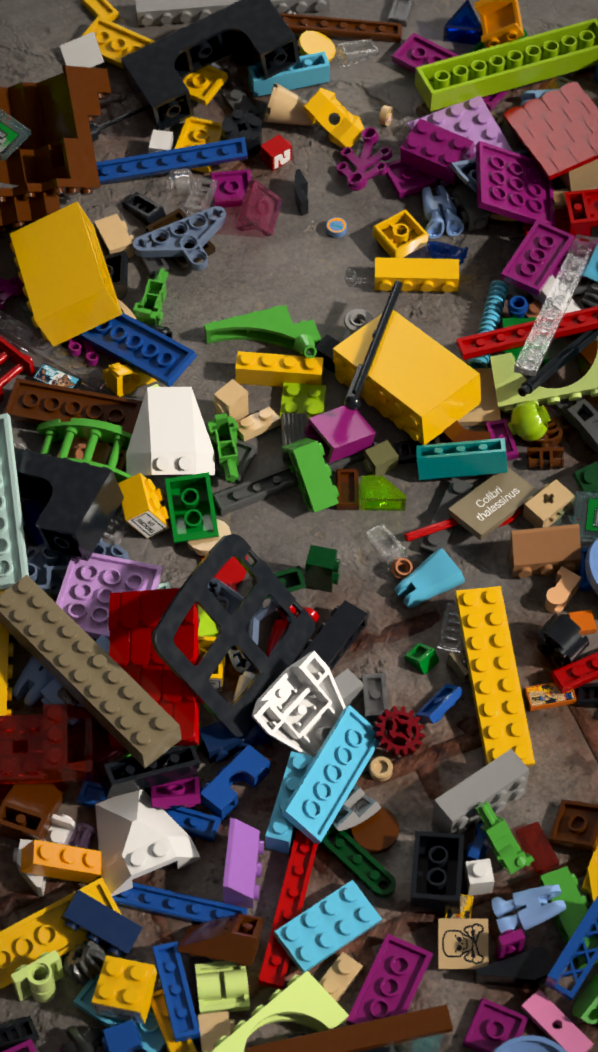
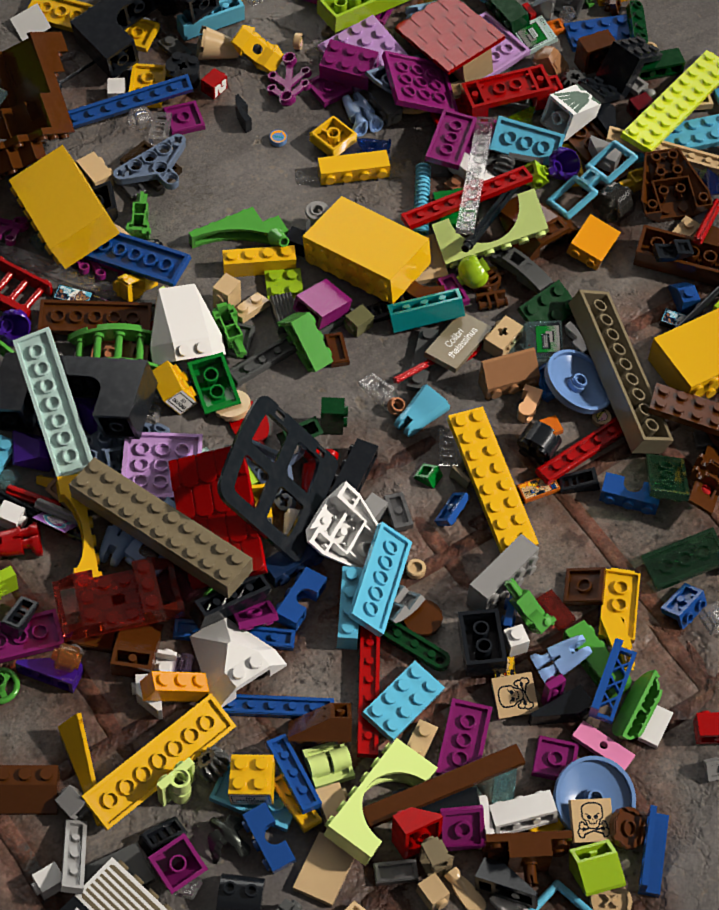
camera: 15 degrees left, 0 degrees up
(101, 923) = (218, 730): dark blue brick -> none
(156, 210) = (124, 145): black slope -> none
(242, 865) = (323, 664): medium lavender slope -> none
(259, 209) = (211, 132): clear pink bracket -> none
(352, 398) = (331, 257): black bar -> none
(381, 494) = (365, 349): clear neon green slope -> none
(402, 741) = (433, 540): dark red gear -> none
(517, 307) = (443, 181): blue cone -> none

